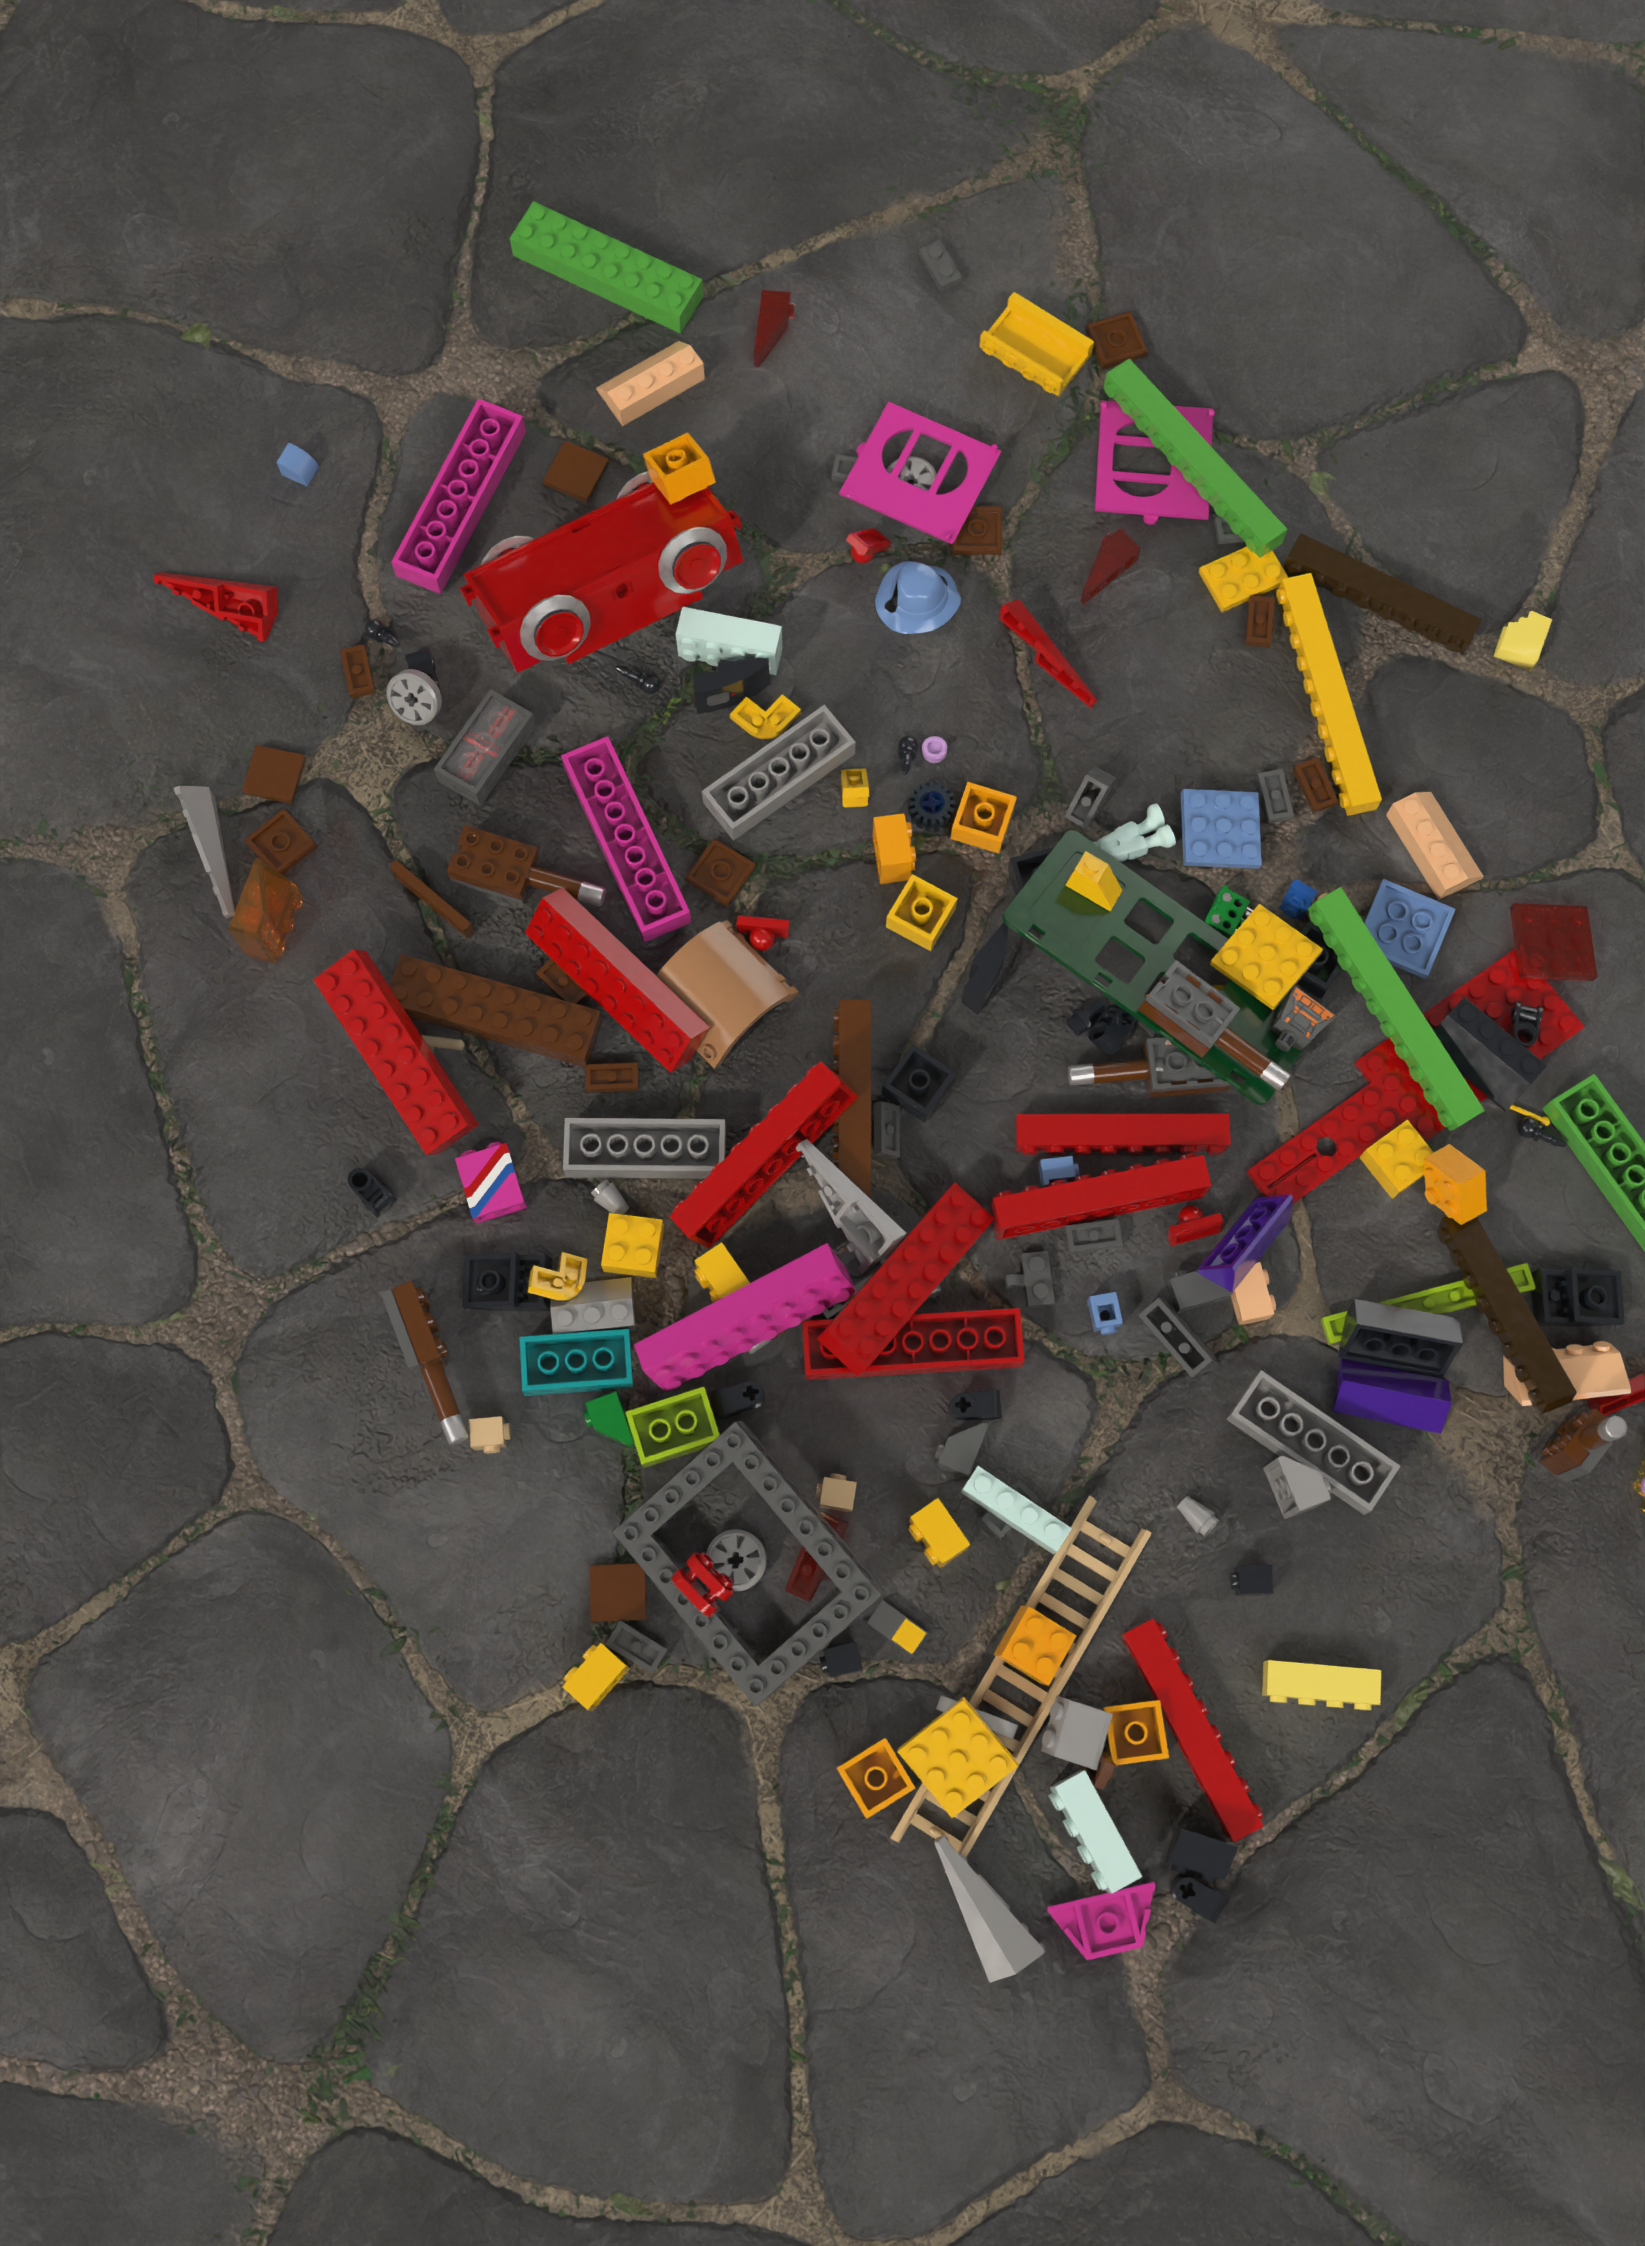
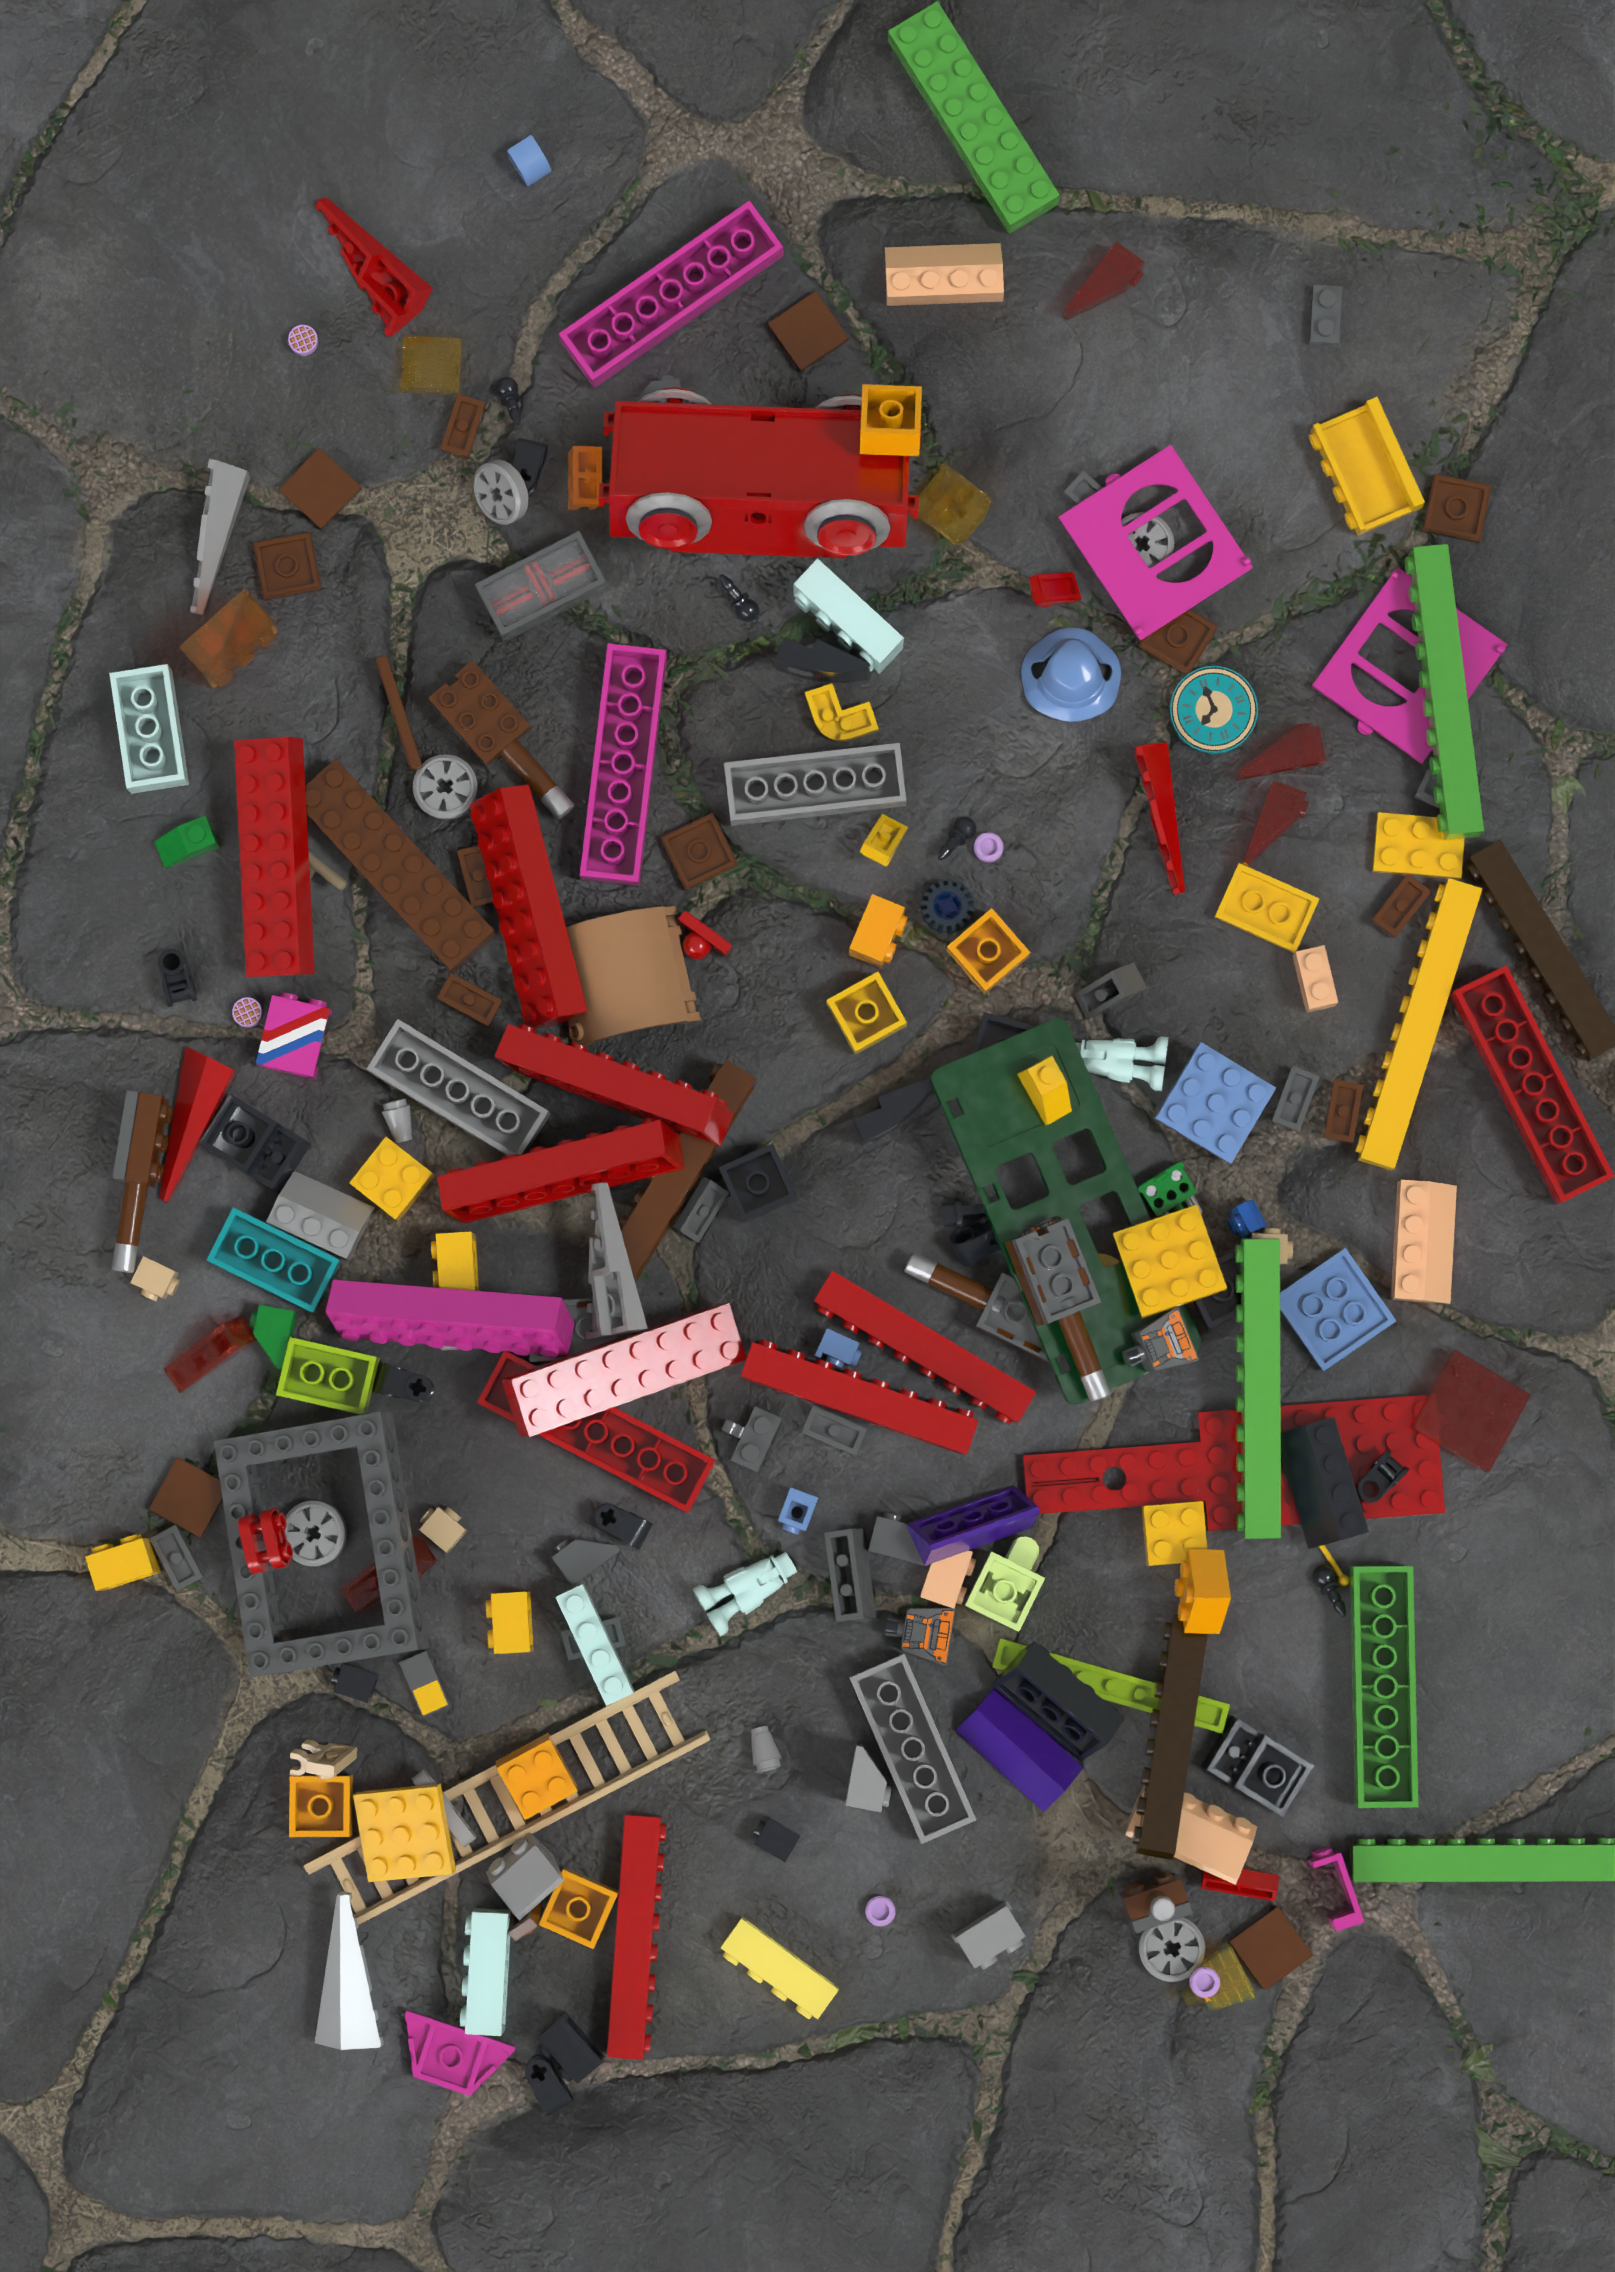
camera: 35 degrees right, 10 degrees up
(199, 678) = (303, 340): none -> tile
(241, 1016) = (149, 728): none -> light aqua brick
(307, 642) = (431, 364): none -> clear yellow slope
(319, 1085) = (187, 842): none -> green slope
(440, 1269) = (198, 1097): none -> red wedge
(442, 1187) = (247, 1012): none -> tile
(471, 655) = (584, 477): none -> orange hinge
(491, 920) = (446, 769): none -> light grey wheel
(559, 1284) = (301, 1178): yellow plate -> none
(568, 1466) = (210, 1353): none -> clear red slope
(761, 527) = (952, 505): none -> clear yellow slope
(764, 1065) = (614, 1084): none -> red brick
(857, 1737) = (324, 1761): none -> tan plate
(1035, 564) = (1213, 710): none -> tile
(1104, 1395) = (748, 1586): none -> light aqua piece
(1129, 604) = (1278, 814): none -> clear red slope
(1165, 676) = (1266, 908): none -> yellow plate
(1193, 1226) = (935, 1477): red tile -> none
(1233, 703) = (1315, 979): none -> light nougat brick
(1262, 1348) = (924, 1632): none -> torso
(1302, 1273) = (1007, 1584): none -> yellowish green brick
(1368, 1589) = (880, 1910): none -> lavender tile
(1439, 687) = (1531, 1085): none -> red brick
(1469, 1552) = (990, 1936): none -> light grey brick
(1614, 1494) = (1166, 1966): none -> light grey wheel

